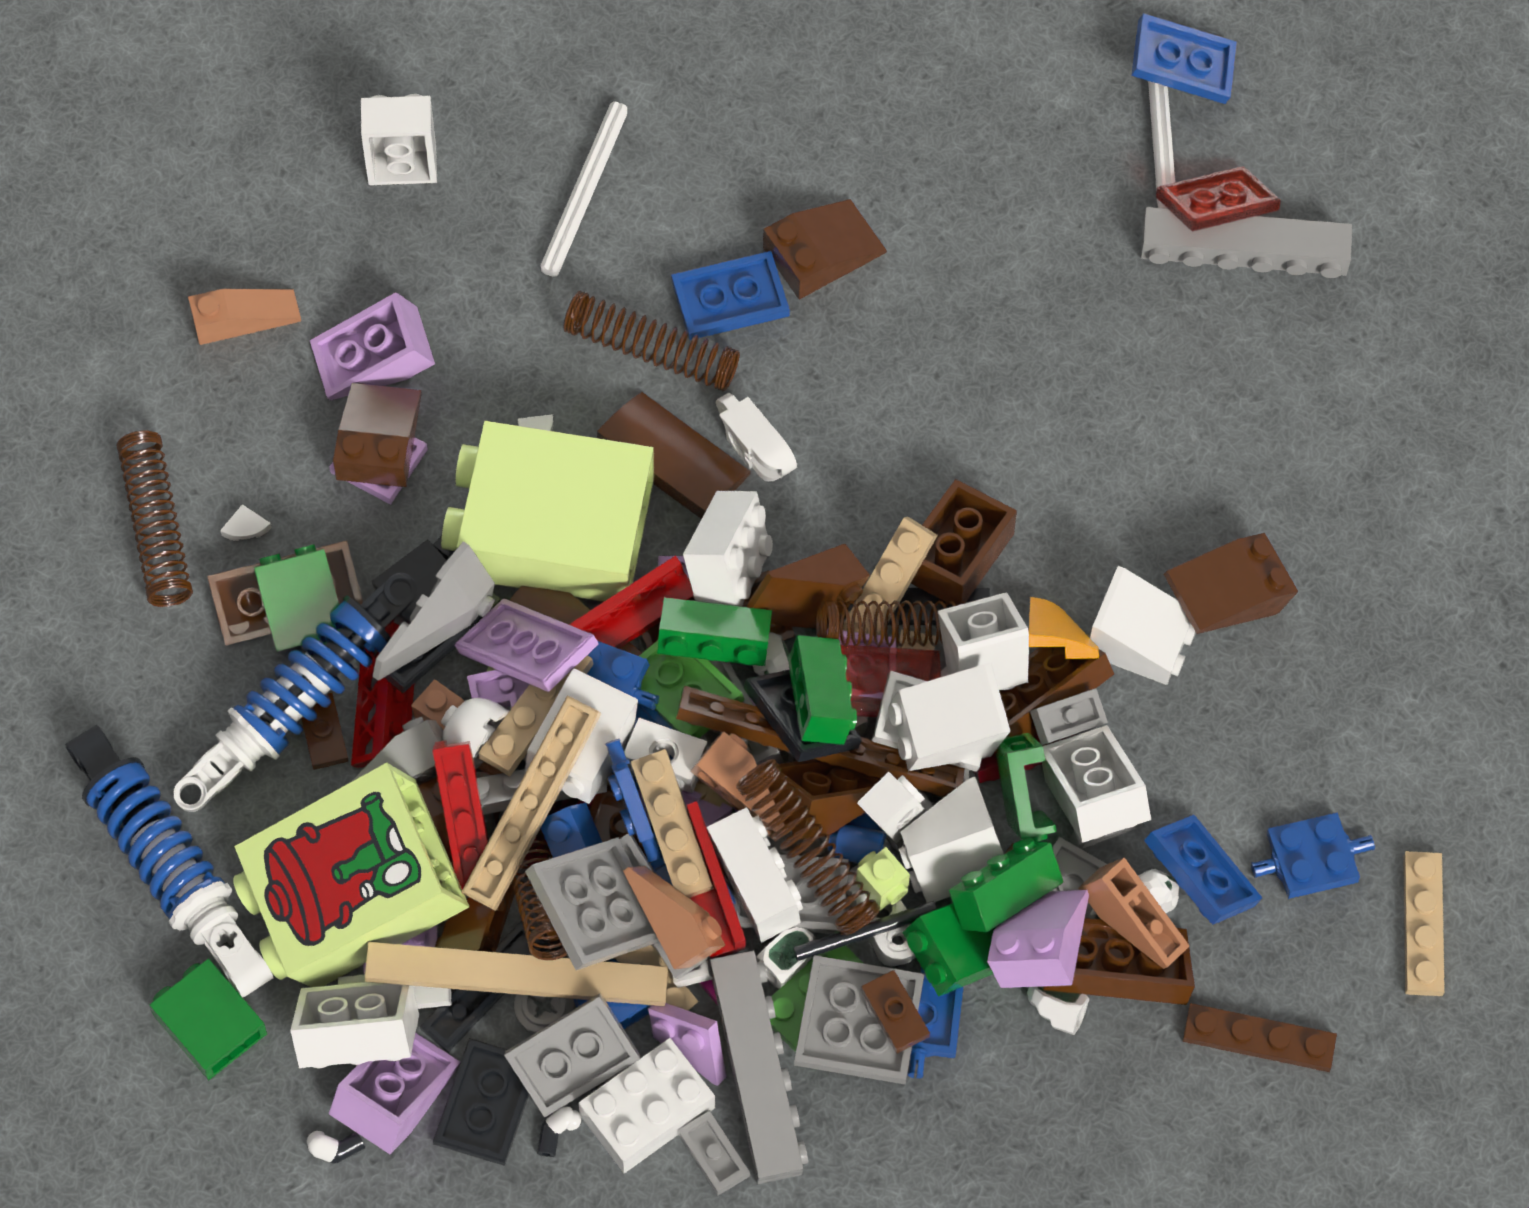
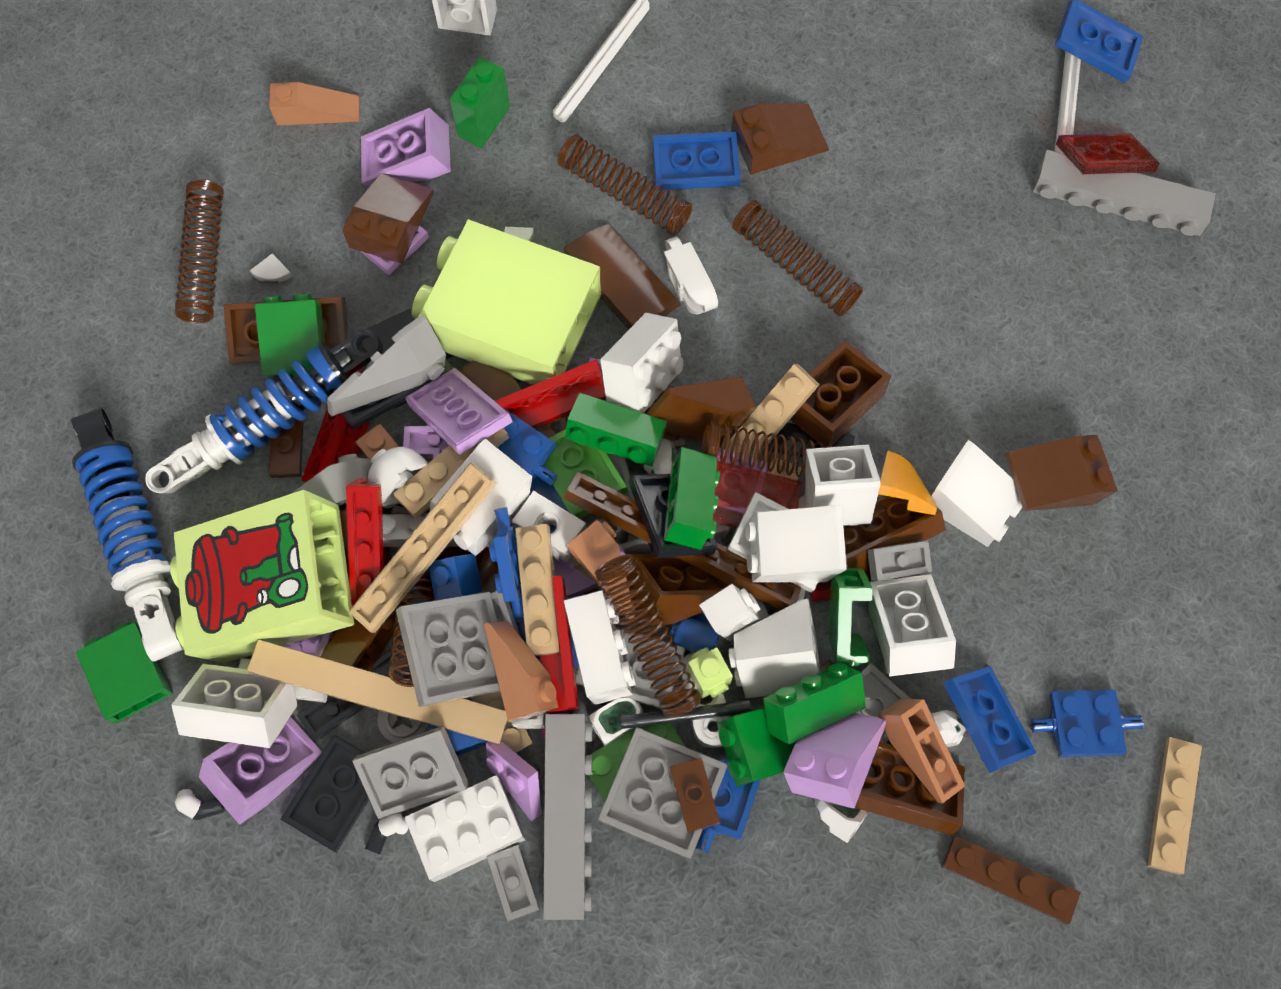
camera: 15 degrees right, 5 degrees up
(454, 274) = (480, 102): none -> green brick
(811, 349) = (849, 297): none -> reddish brown piece

